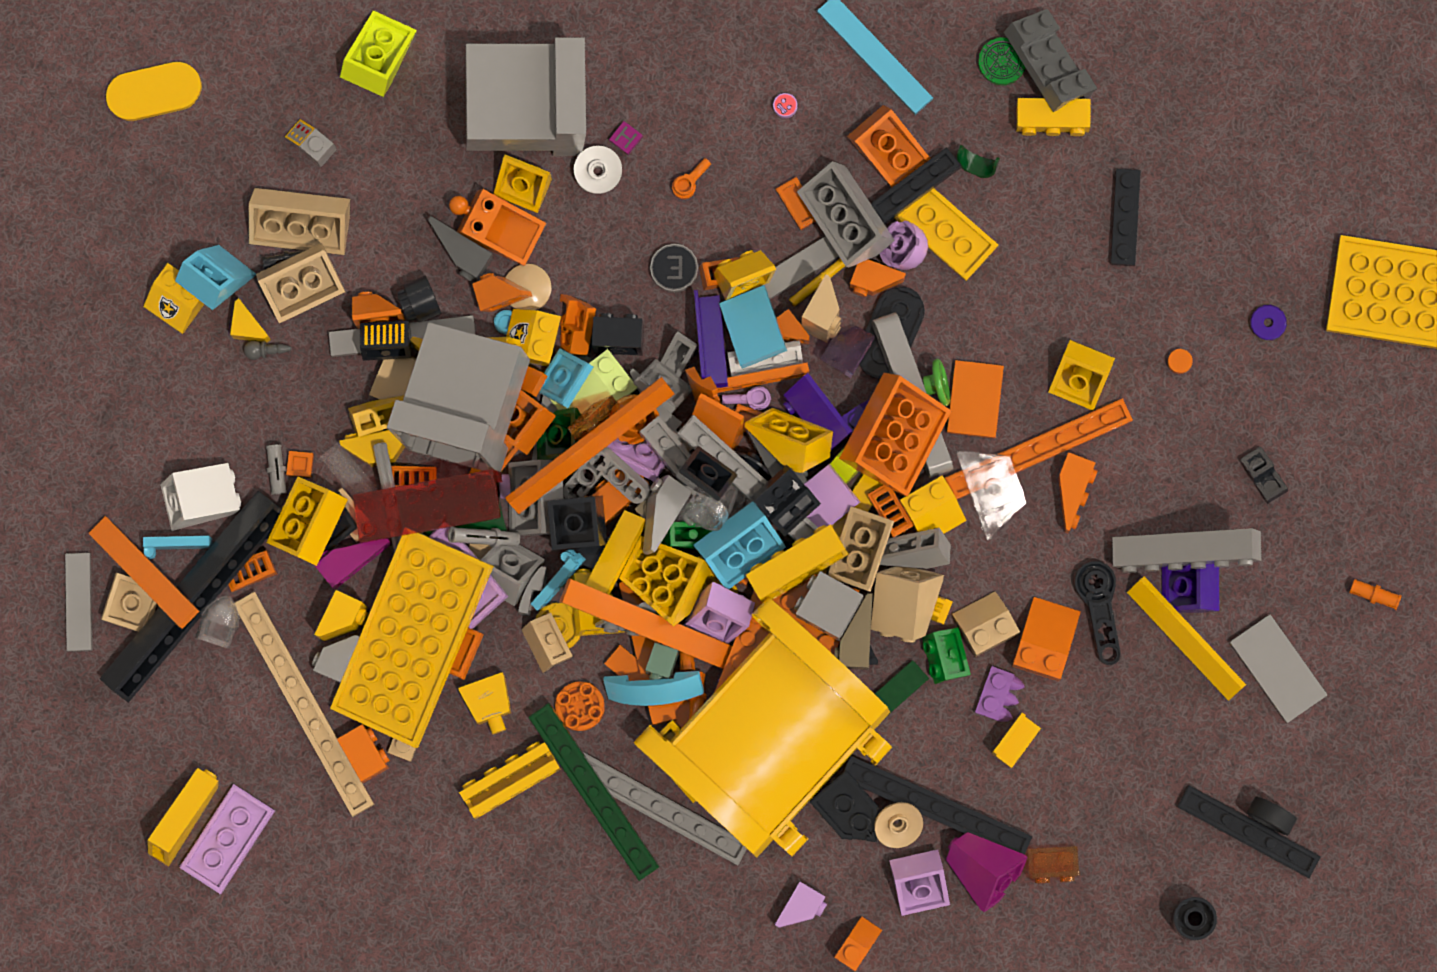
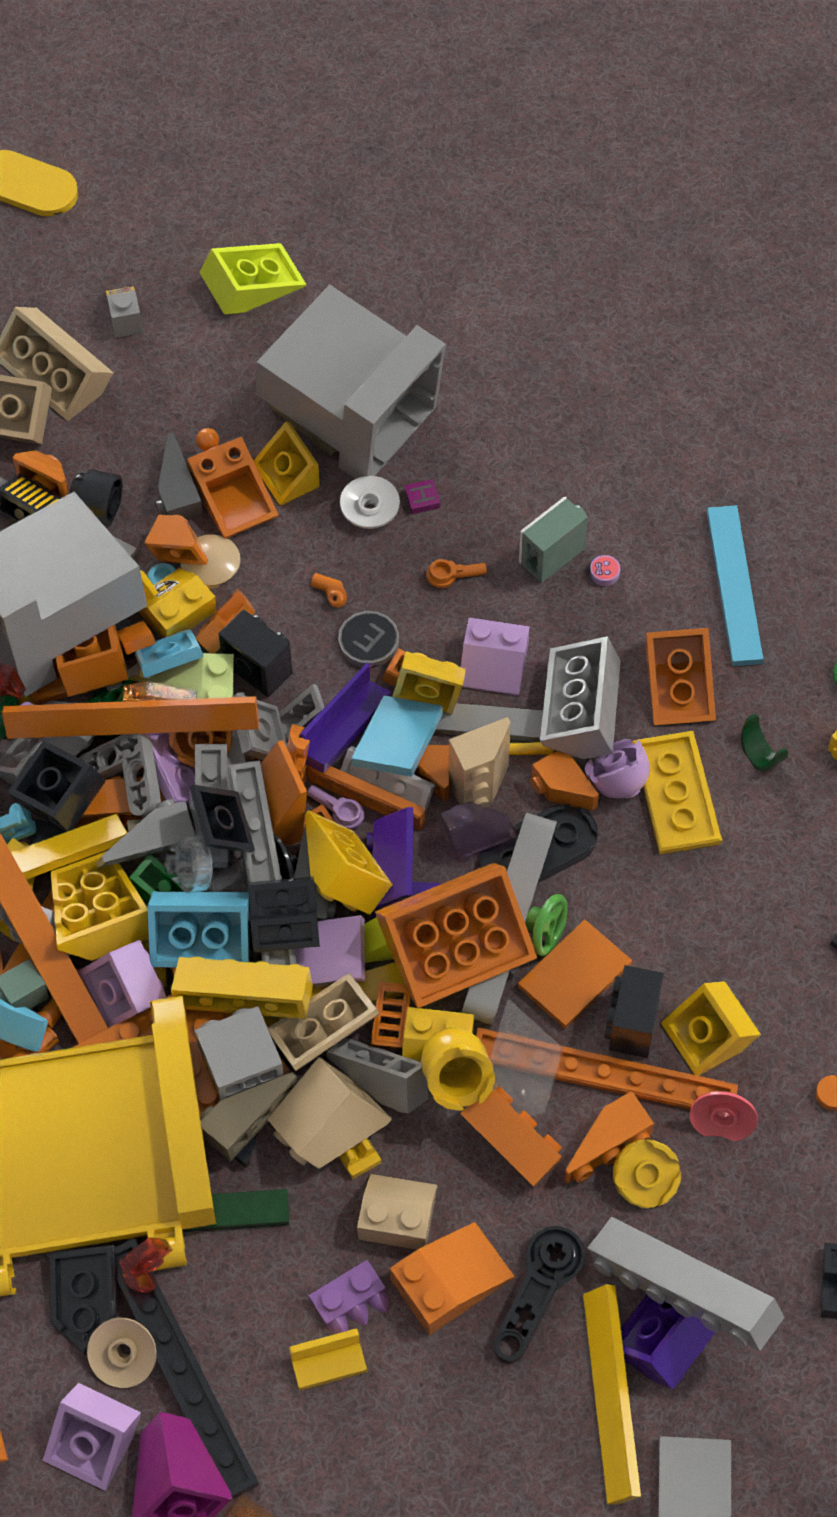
camera: 30 degrees right, 20 degrees down
(623, 249) = (333, 588): none -> orange arm
(741, 112) = (553, 539): none -> sand green piece
(765, 223) = (494, 656): none -> lavender slope
(795, 204) = (539, 662): orange tile -> none
(871, 770) = (142, 1260): none -> clear red bracket
(916, 185) = (678, 724): black tile -> none
(946, 655) = (327, 1210): green bracket -> none
(963, 519) = (457, 1068): none -> yellow tile
(1019, 530) = (514, 1136): none -> orange brick
(1033, 400) = (633, 1011): none -> black brick
(1111, 494) = (647, 1173): none -> yellow tile
(1131, 426) = (723, 1116): none -> coral dish

